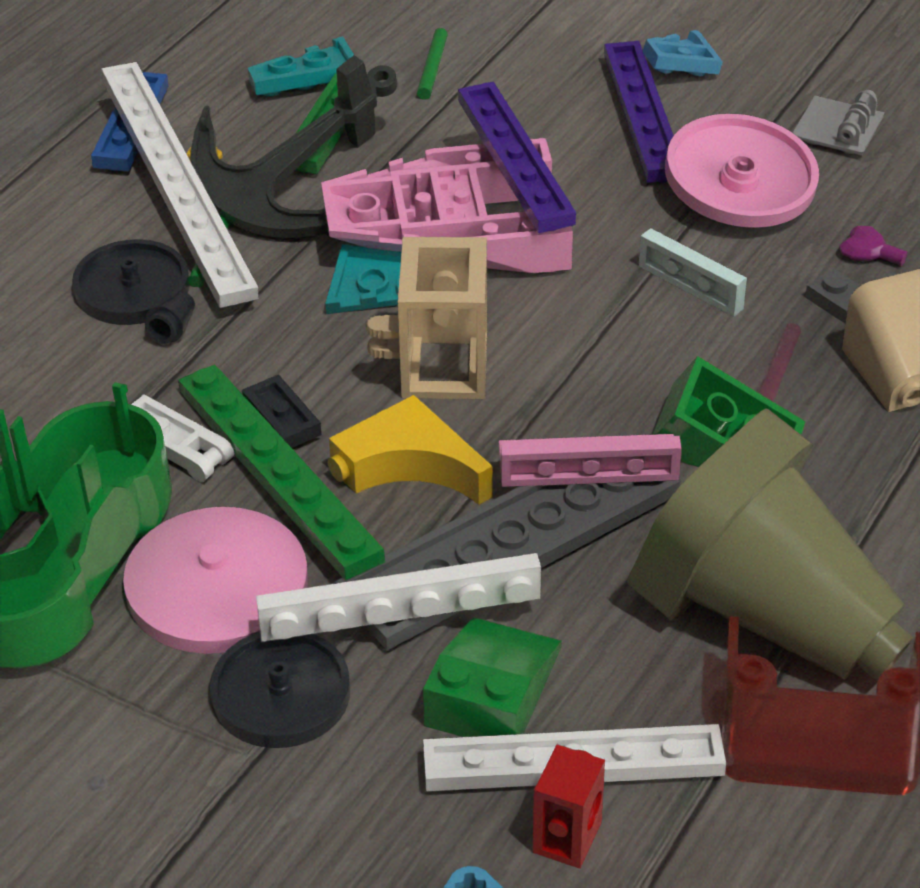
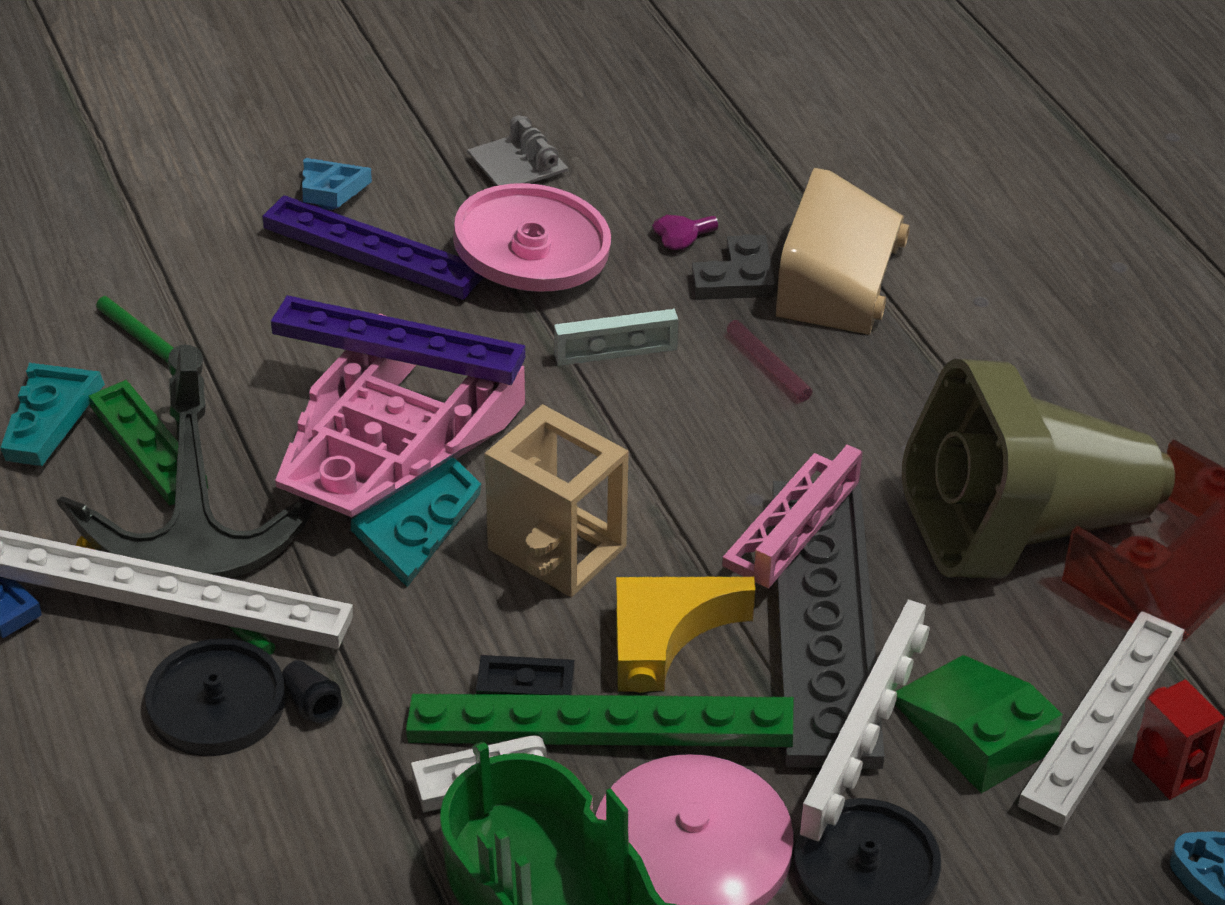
camera: 55 degrees left, 0 degrees up
(711, 408) = (813, 418): green slope -> none

